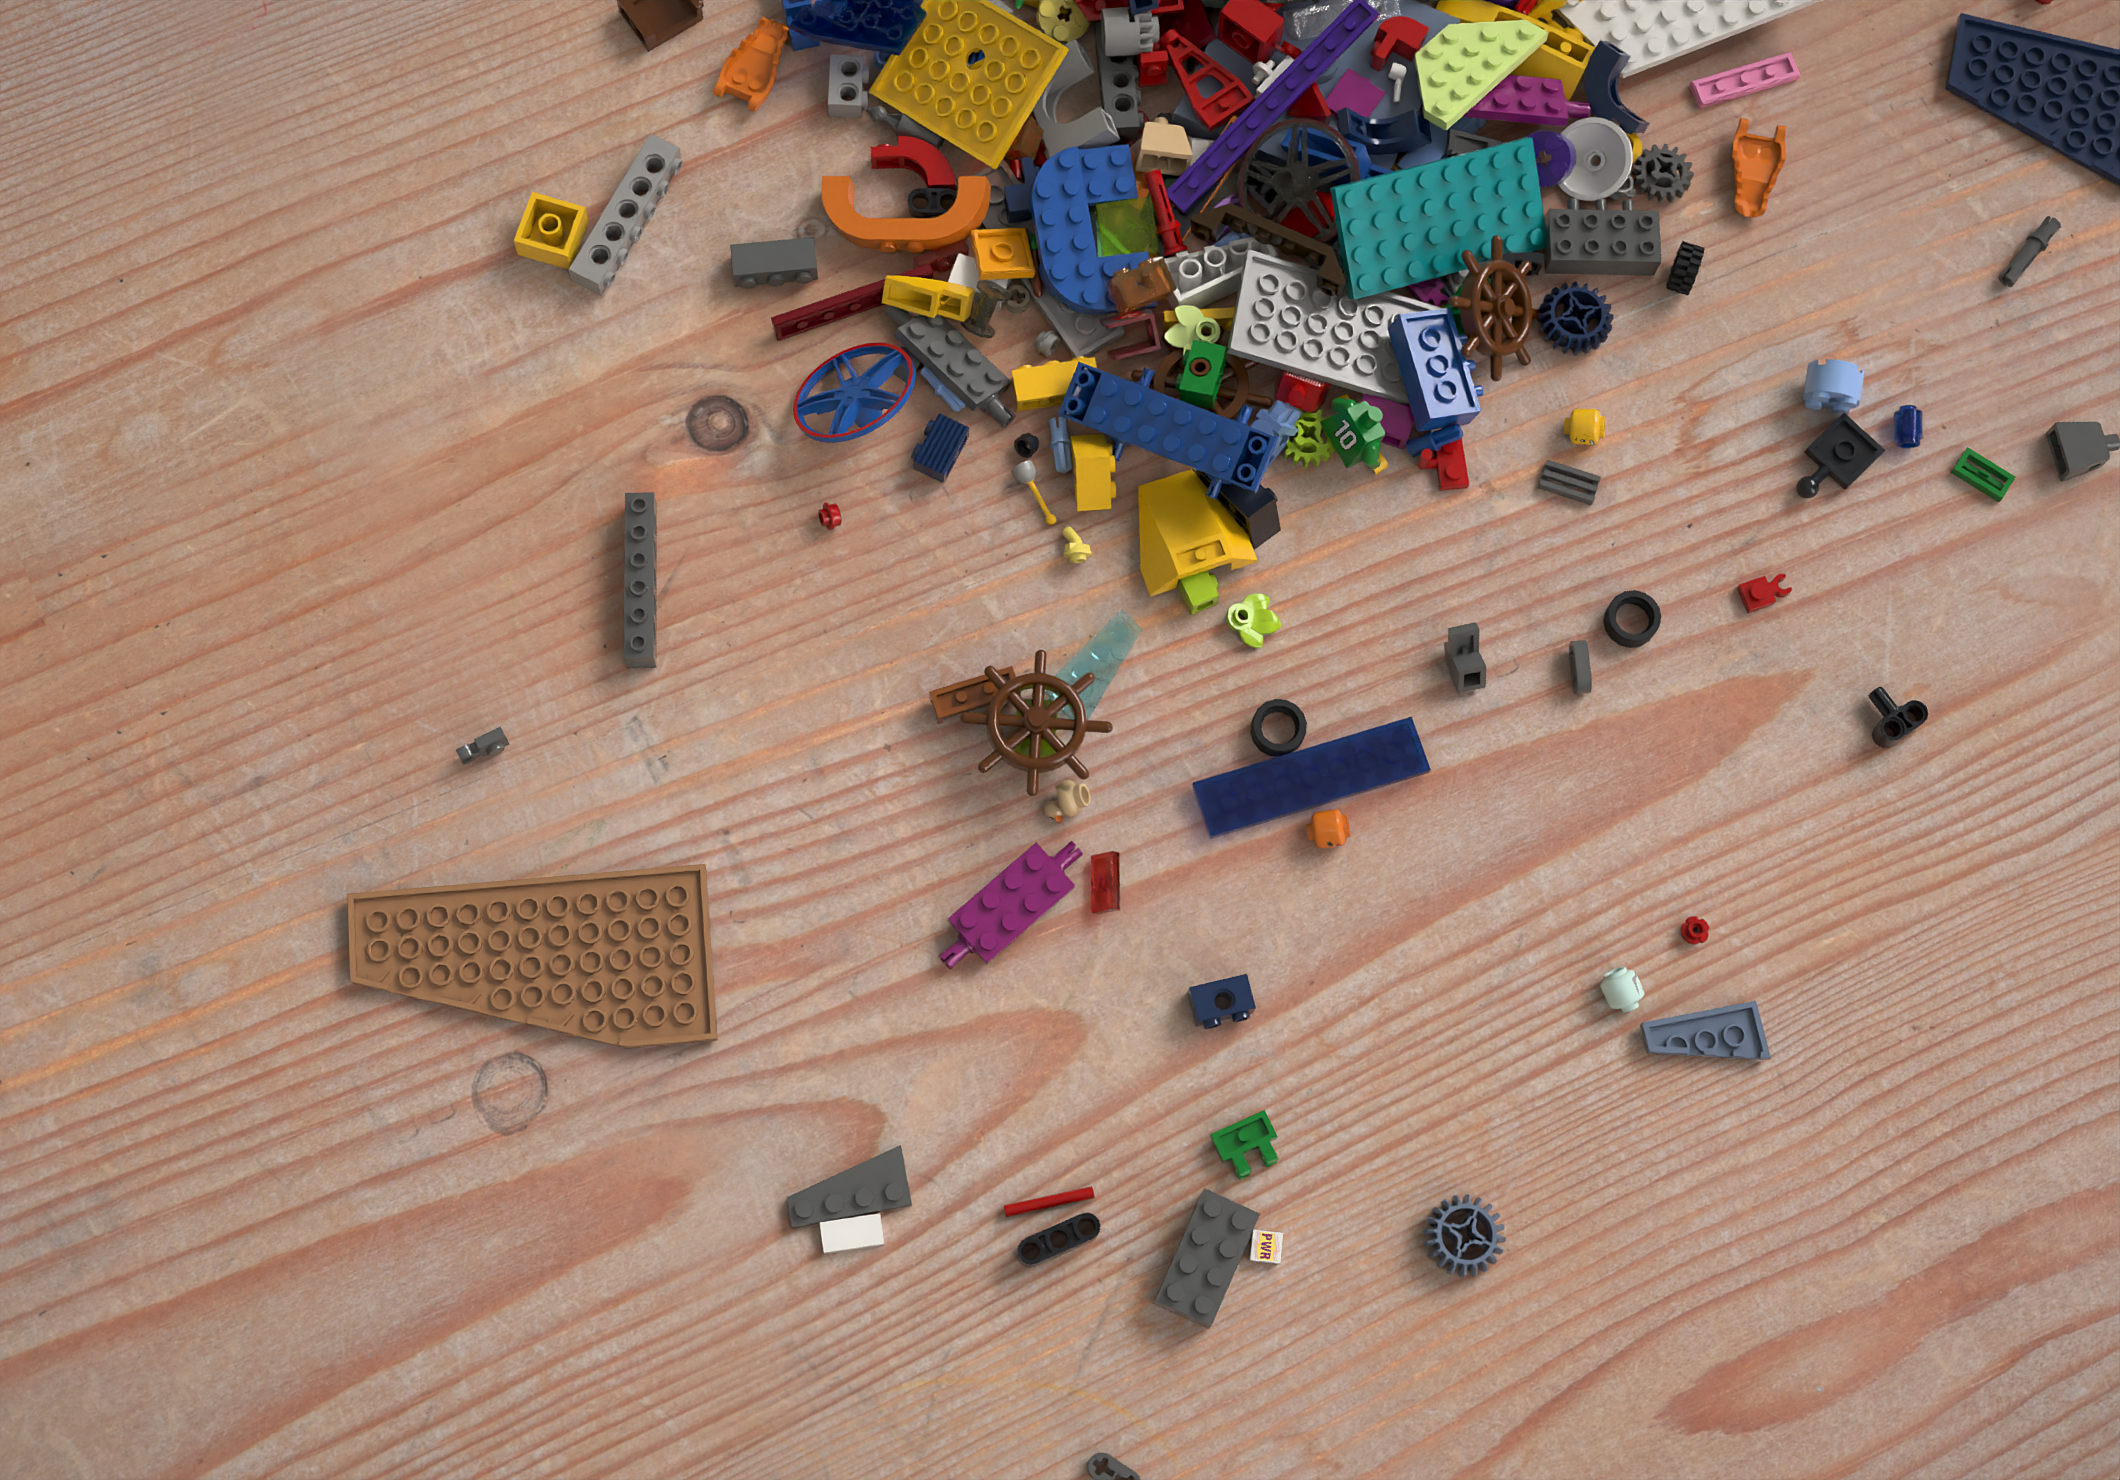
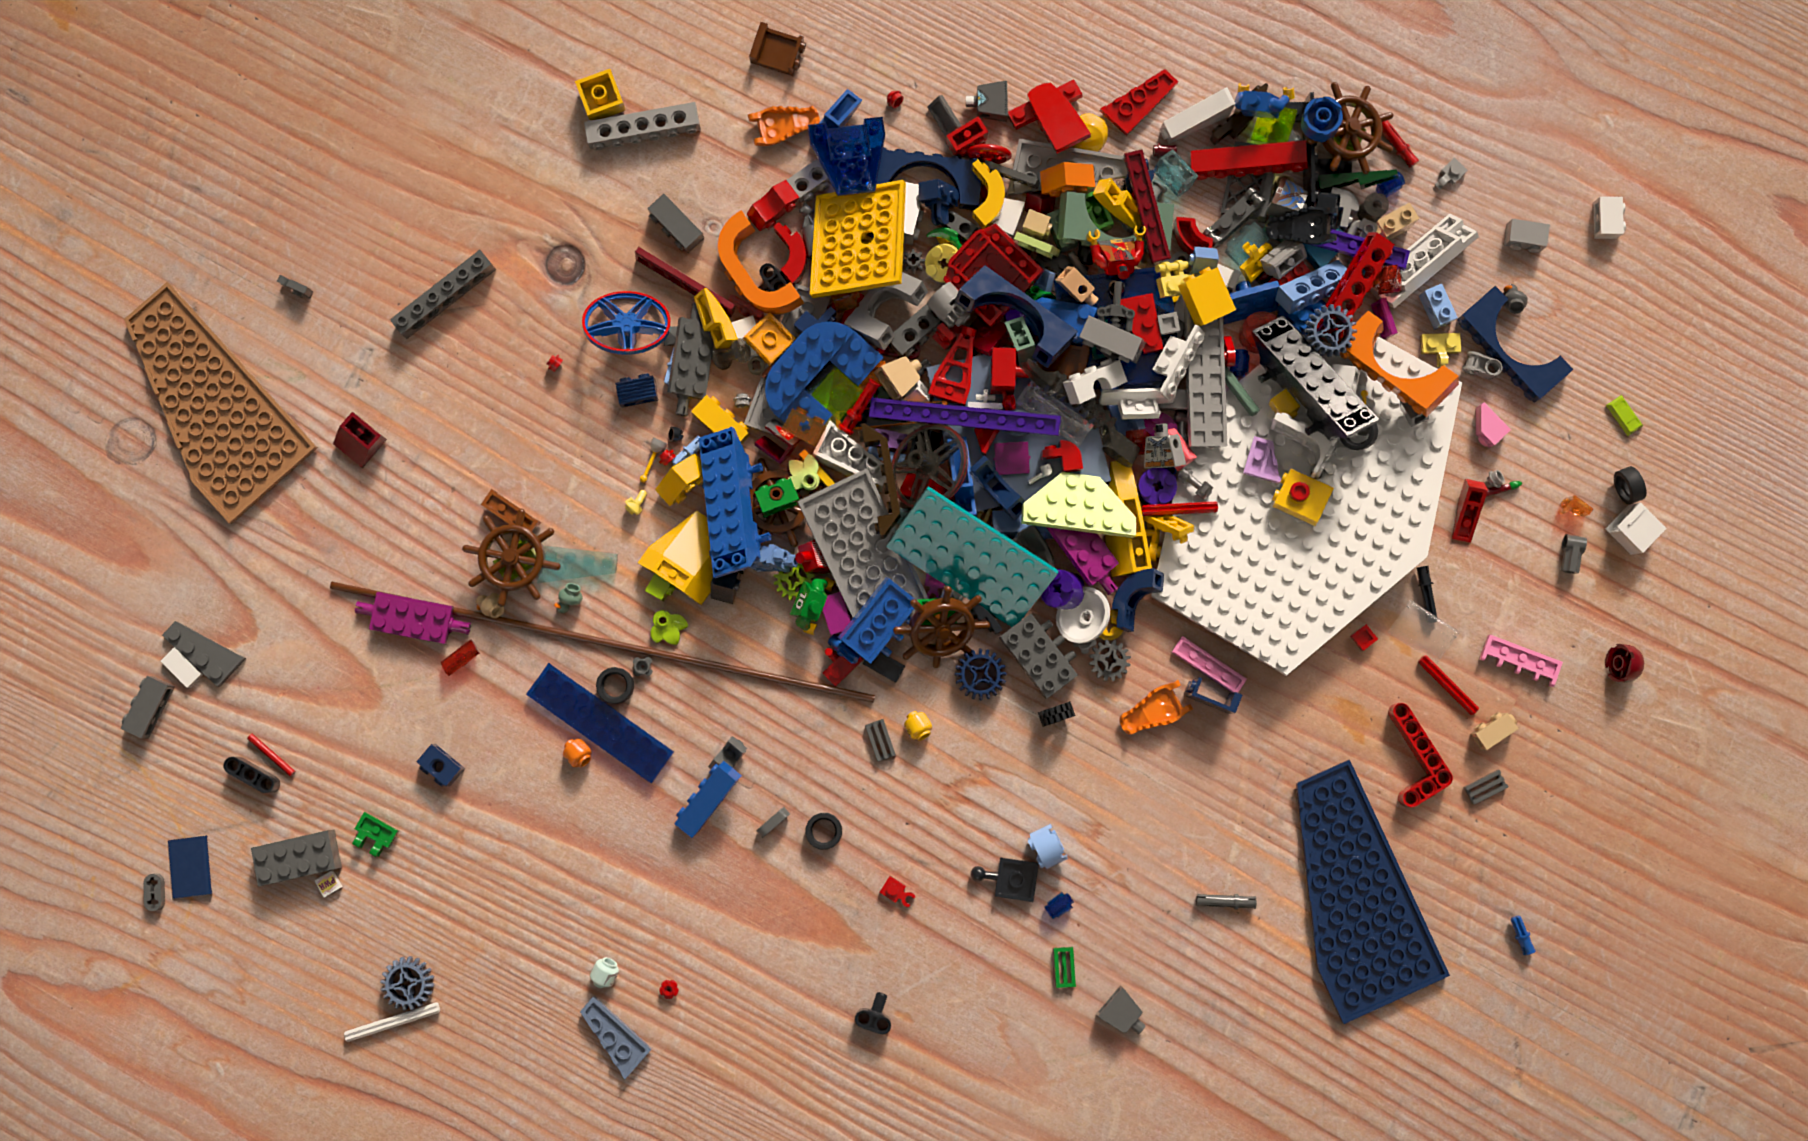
camera: 60 degrees right, 10 degrees up
(739, 806) = (358, 439): none -> dark red slope
(843, 140) = (773, 205): none -> red brick
(869, 1310) = (147, 707): none -> dark grey brick
(1047, 472) = (666, 457): none -> red plate
(1115, 1407) = (189, 867): none -> dark blue piece
(1127, 702) = (568, 596): none -> sand green animal
(1239, 684) = (633, 648): none -> reddish brown piece
(1278, 673) = (637, 666): none -> dark grey plate
(1494, 410) = (886, 666): none -> black plate
(1498, 1292) = (391, 1022): none -> white axle
(1501, 713) = (707, 799): none -> blue brick
(1768, 109) = (1230, 706): none -> dark blue panel

